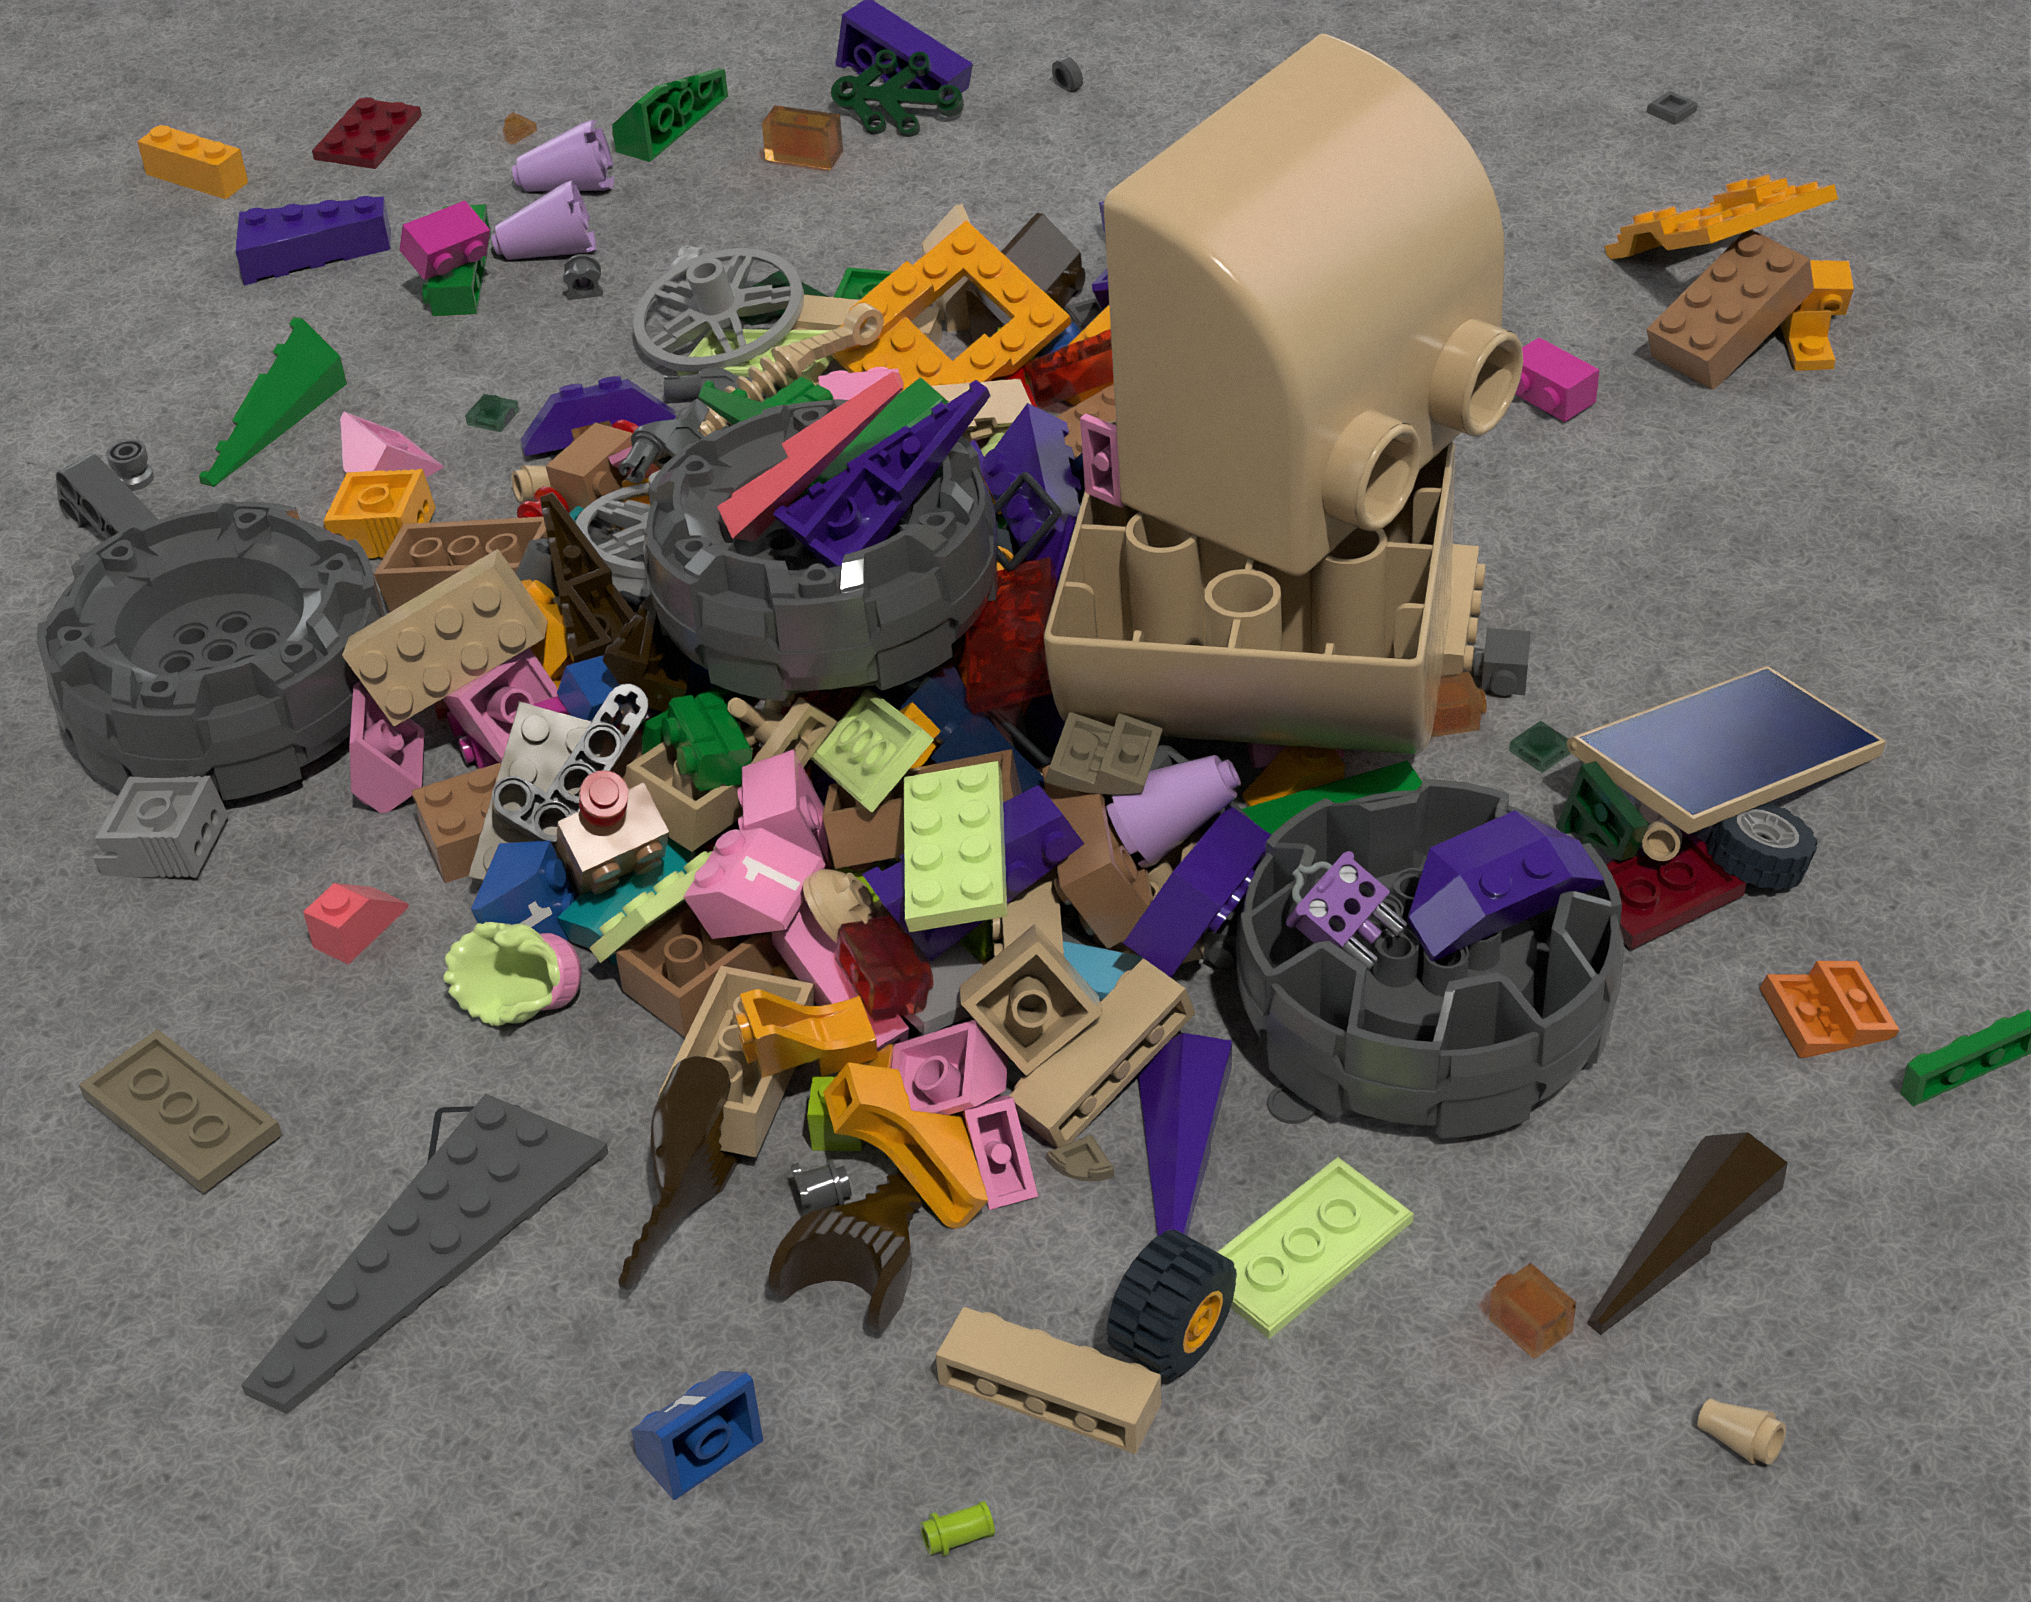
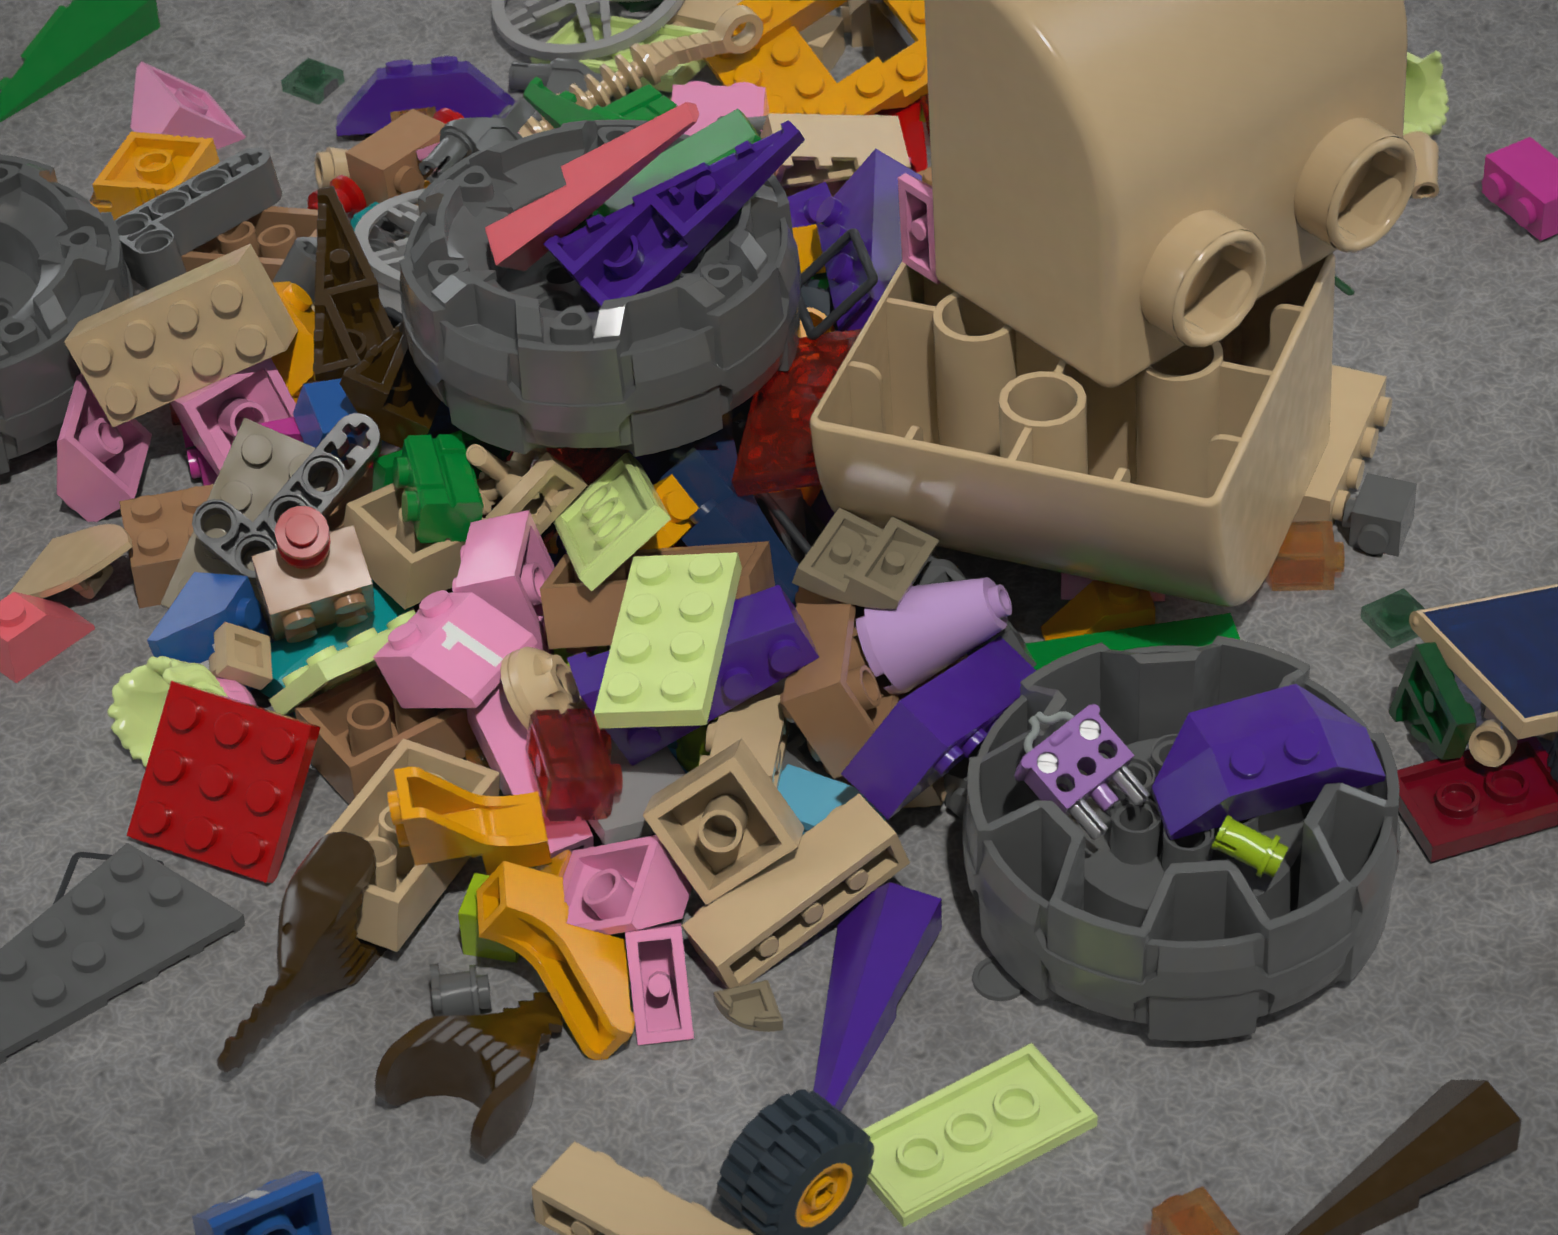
camera: 10 degrees right, 0 degrees up
(380, 849) = (73, 559): none -> tan shield
(426, 533) = (195, 213): none -> dark grey beam
(557, 912) = (241, 656): none -> tan tile
(565, 1026) = (223, 781): none -> red plate
(1505, 957) = (1250, 847): none -> lime pin

